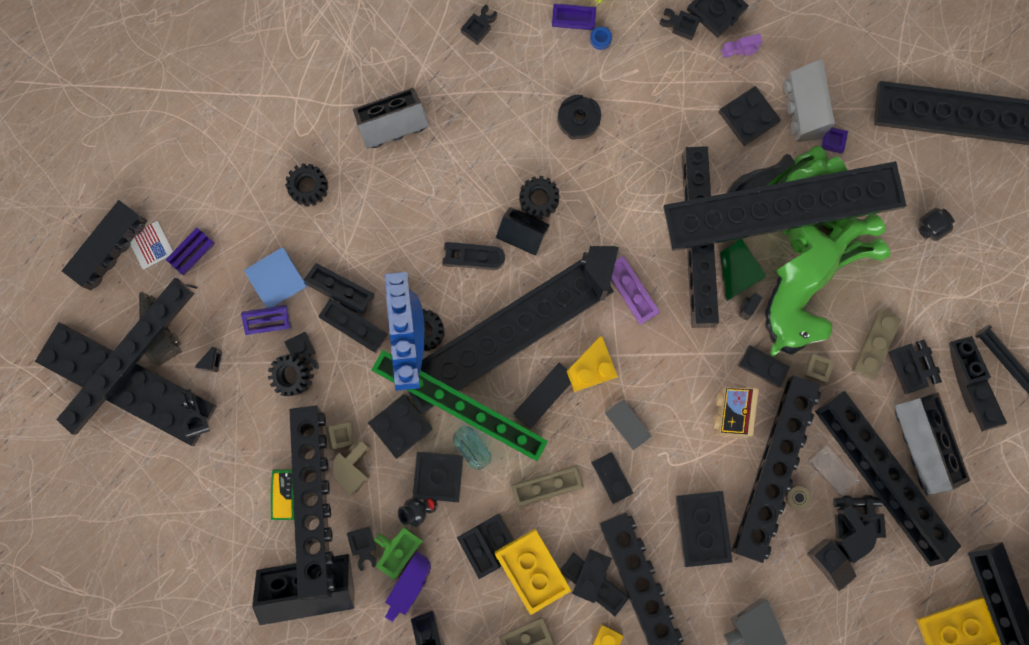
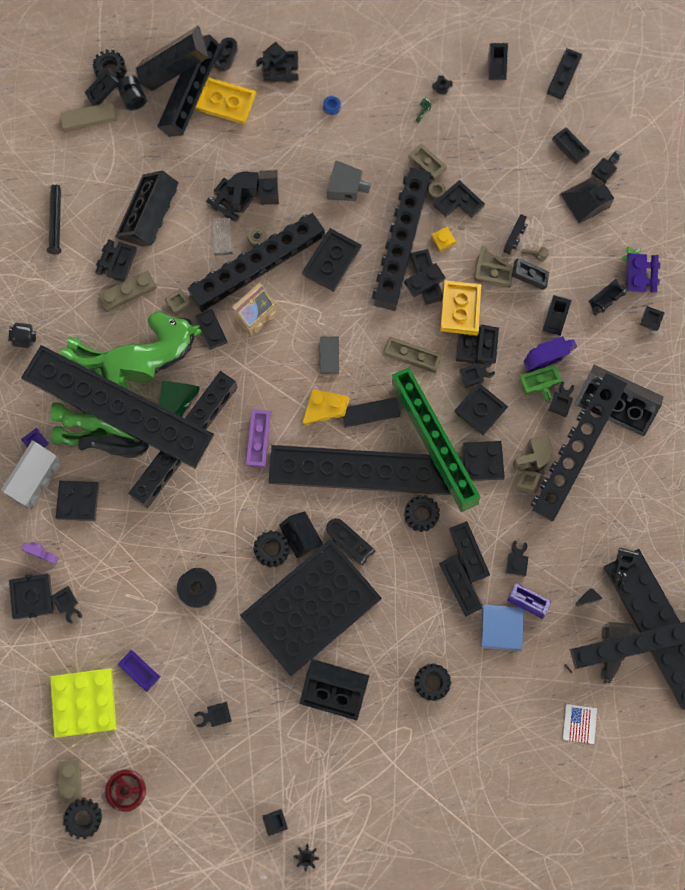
camera: 145 degrees left, 5 degrees down
(104, 246) = (614, 743): black brick -> none
(184, 245) = (569, 691): dark purple tile -> none
(279, 379) = (545, 541): black tyre -> none
(282, 495) = (594, 470): slope -> none
(405, 330) = (434, 513): blue piece -> none
(415, 511) = (512, 396): black animal -> none
(463, 173) = (310, 607): none -> black plate
(469, 508) = (473, 374): none -> black plate
(472, 447) = (445, 411): clear light blue plate -> none
(599, 268) = (270, 460): black slope -> none
(601, 38) = (132, 638): blue tile -> none
(612, 478) = (365, 330): black plate -> none
(749, 306) = (188, 370): black plate -> none
(888, 479) = (193, 209): black brick -> none
(974, 385) = (89, 223): black slope -> none

